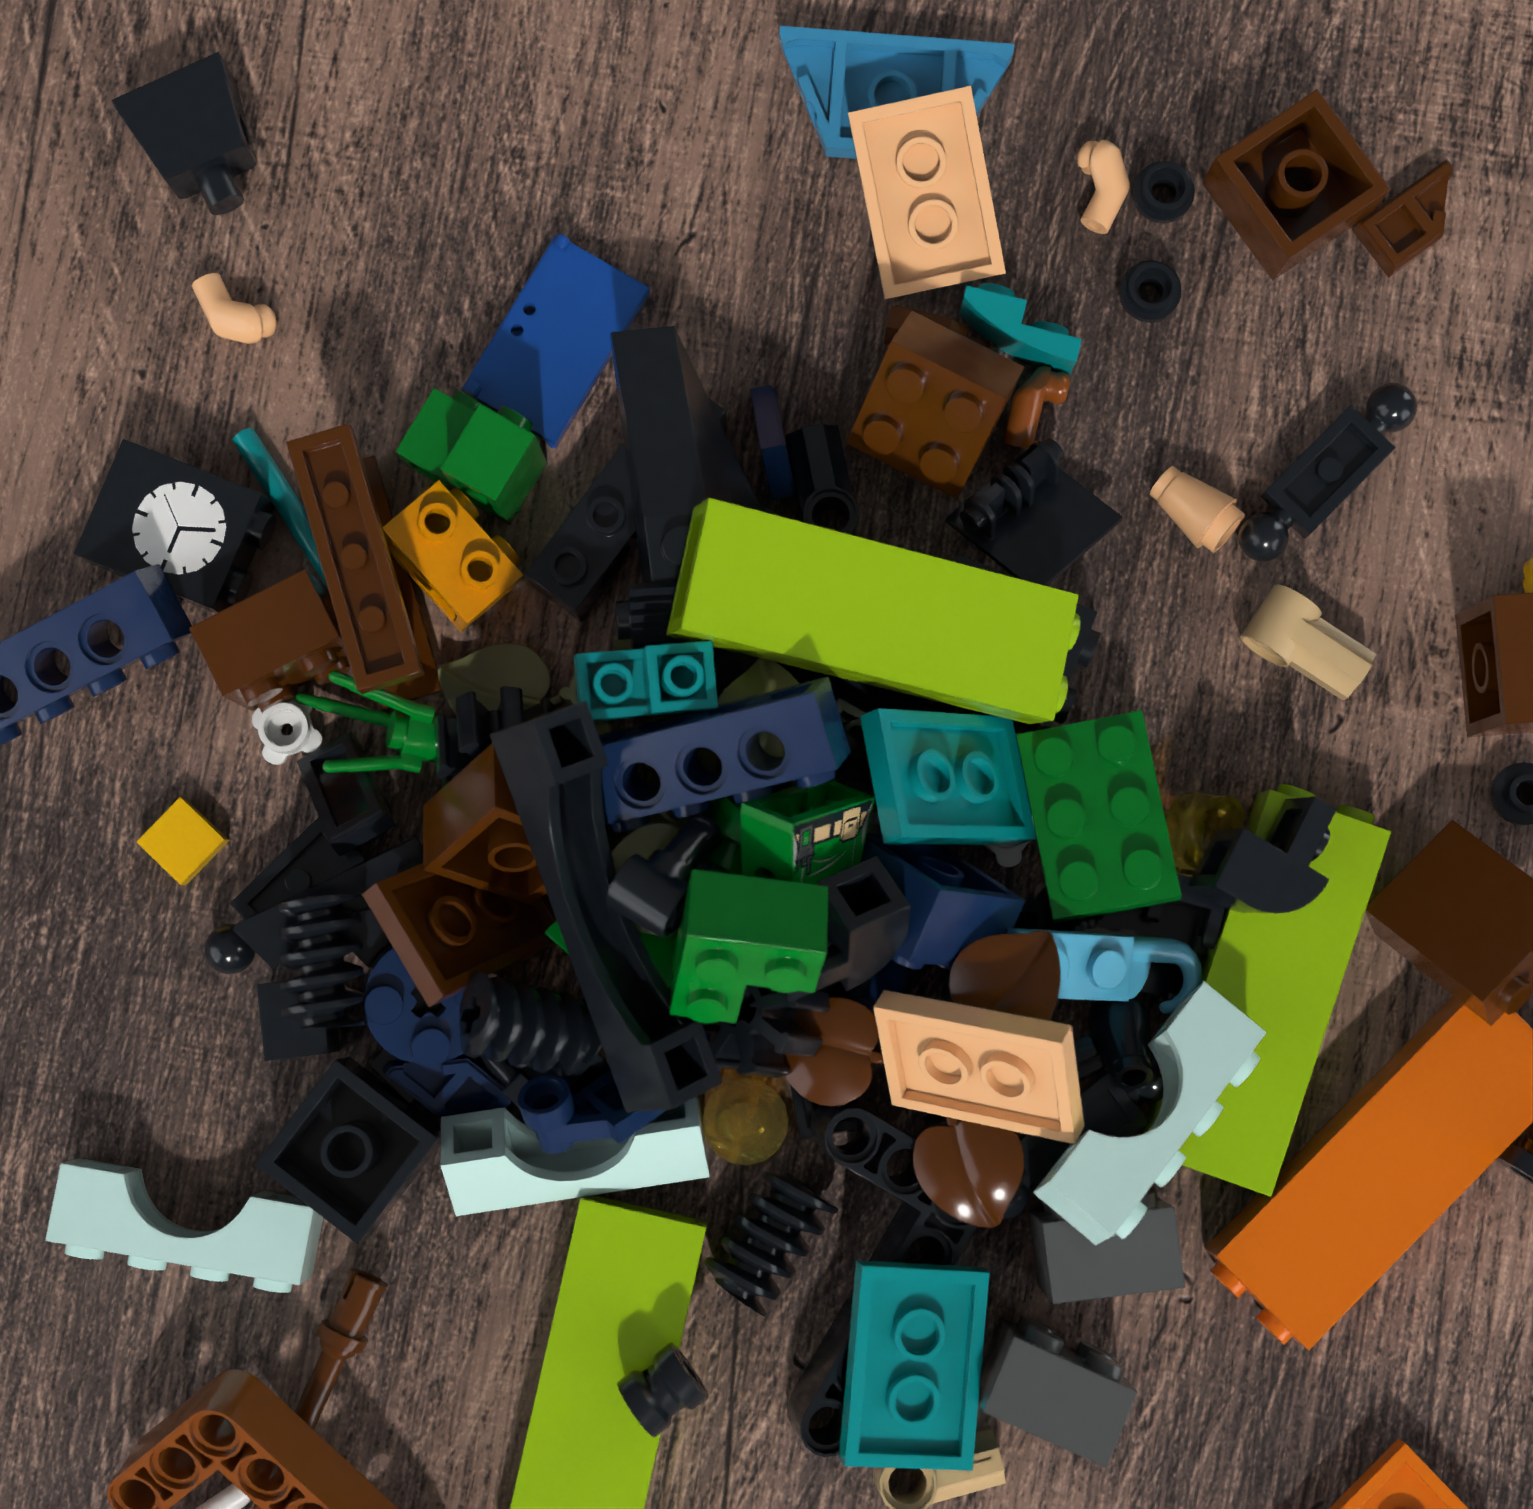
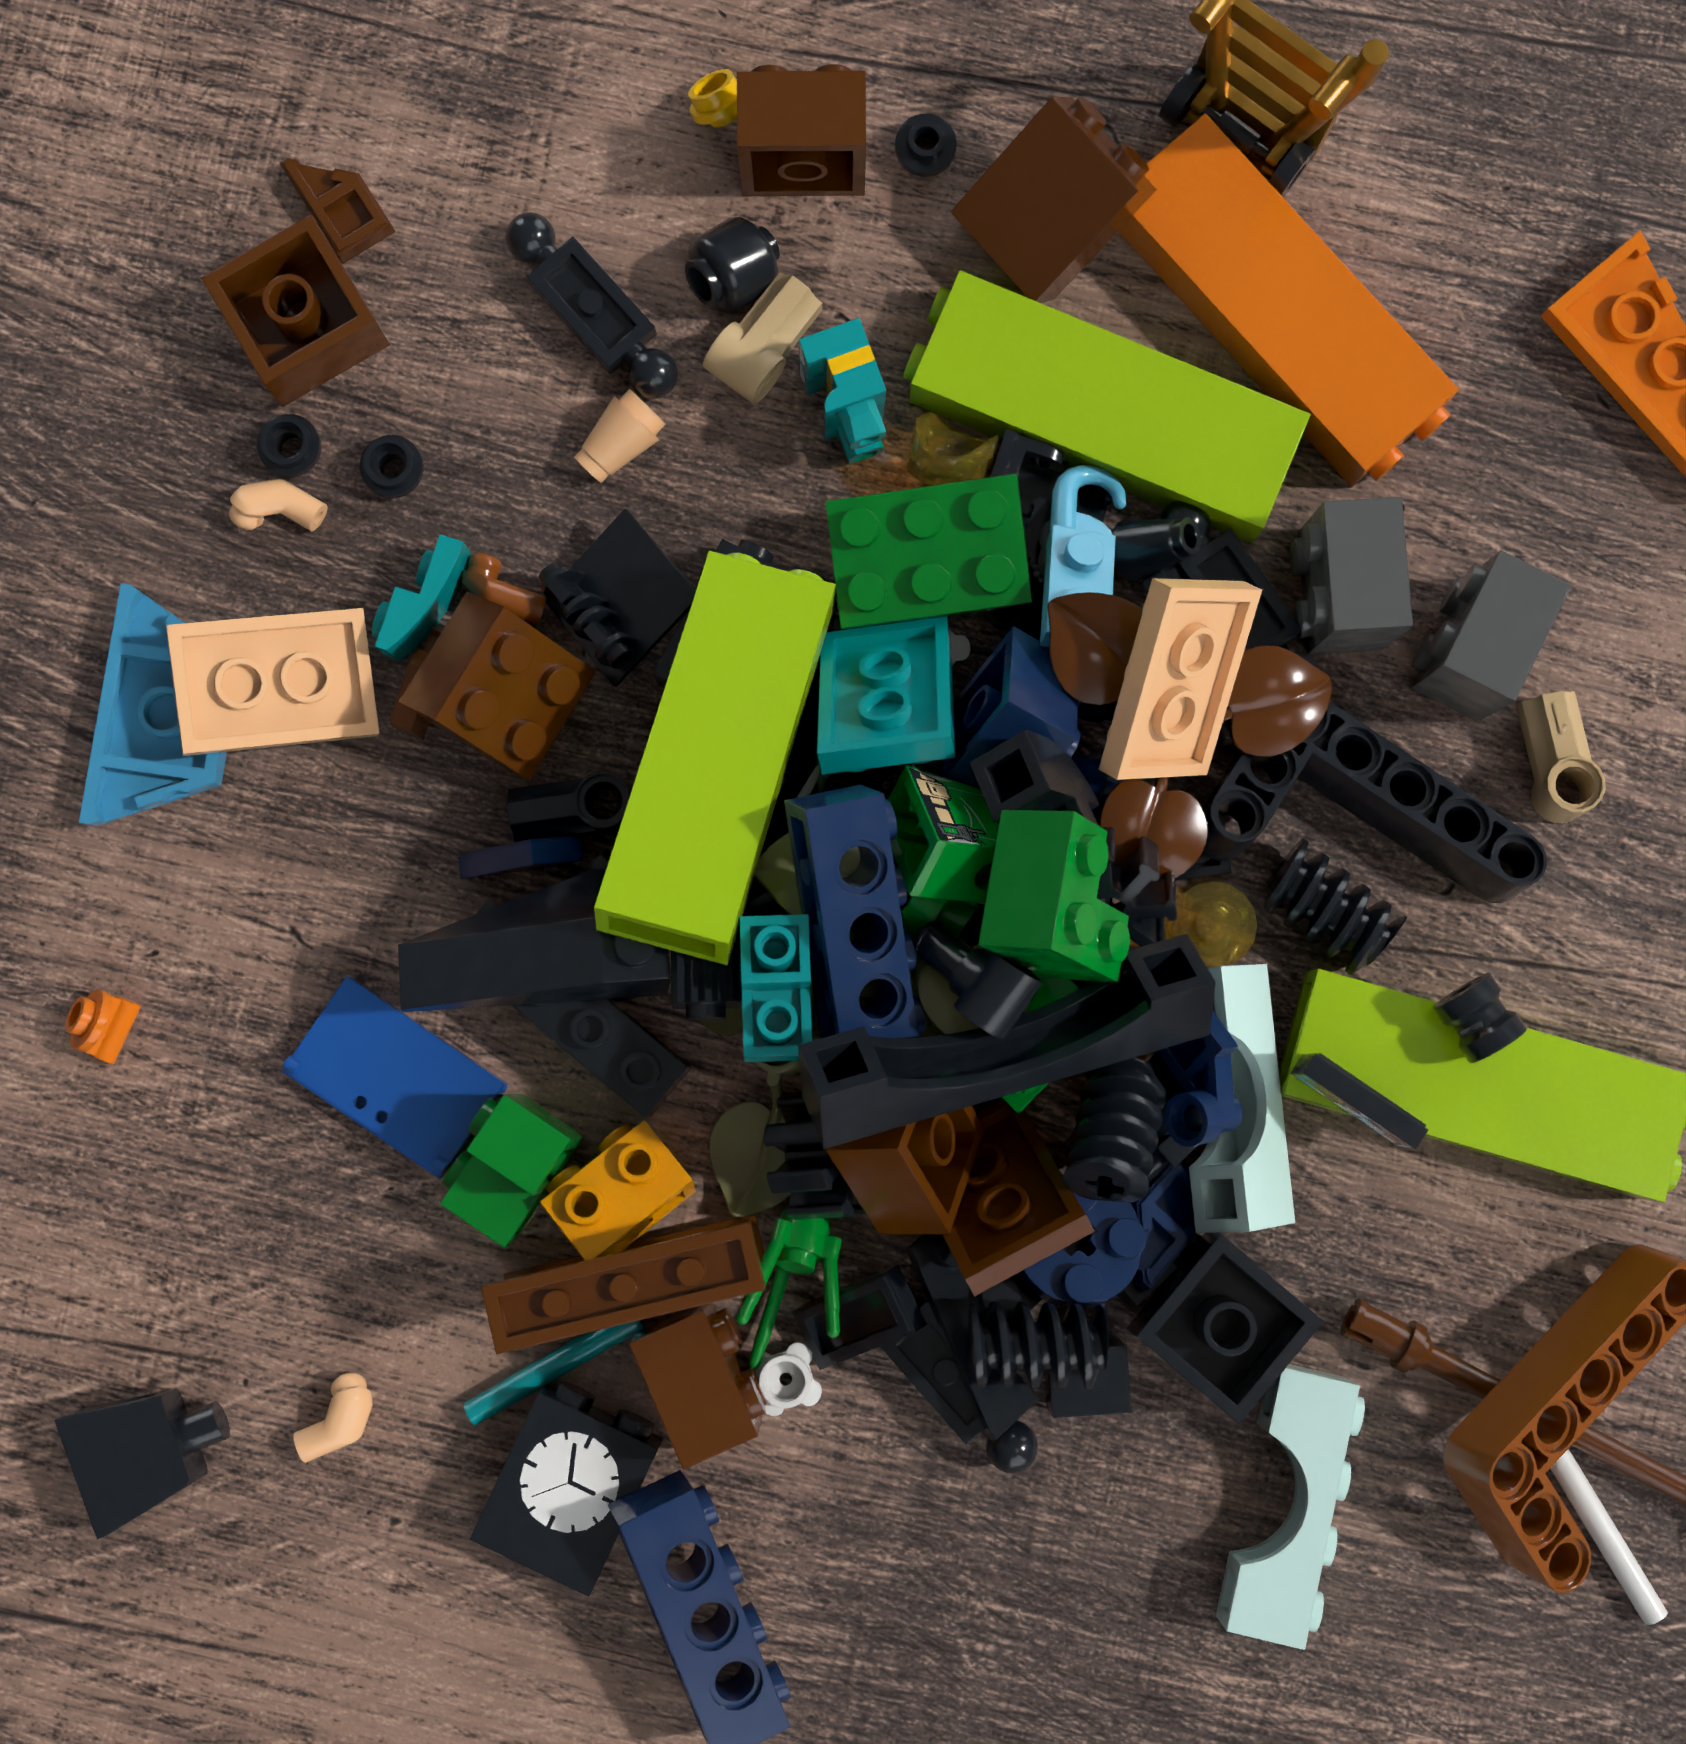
camera: 90 degrees left, 0 degrees up
(182, 841) = (895, 1494): yellow tile -> none
(574, 1271) = (1360, 1100): none -> black tile
(591, 64) = (101, 1024): none -> orange plate
(914, 1366) = (1463, 769): teal plate -> none
(1104, 1176) = (1174, 467): light aqua arch -> none
(1248, 735) = (855, 400): none -> teal hips
(1272, 873) = (997, 383): black brick -> none
(1381, 606) = (732, 264): none -> black head

